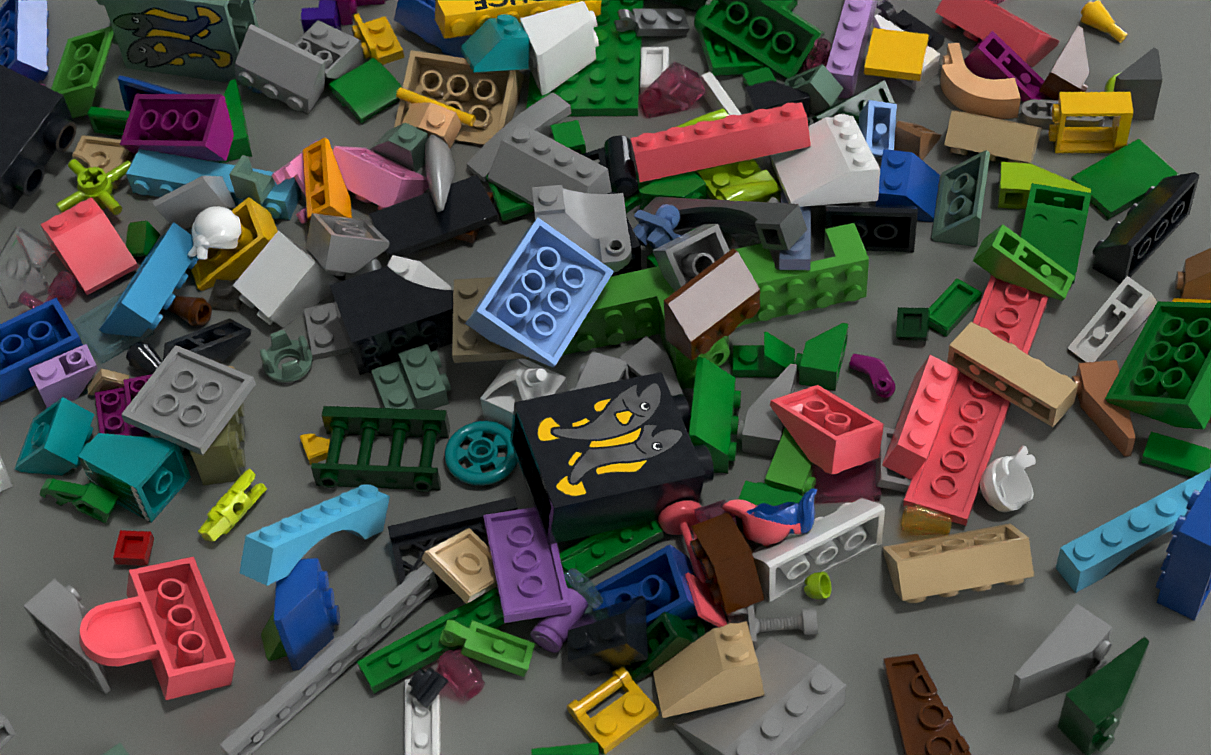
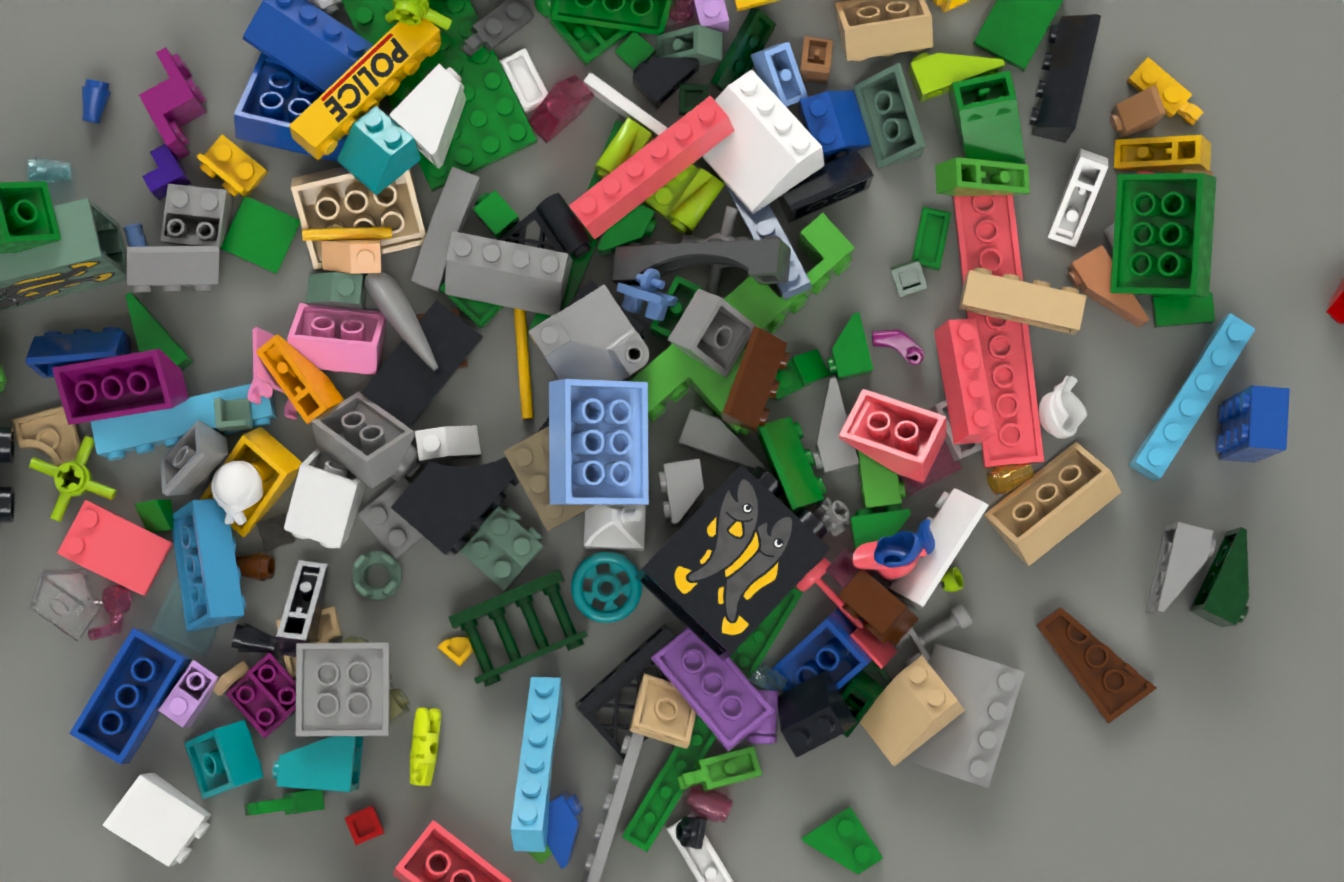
camera: 30 degrees left, 30 degrees up
(108, 120) = (33, 392): green tile -> none
(619, 718) = (854, 775): yellow plate -> none
(728, 479) = (833, 516): none -> light grey gear

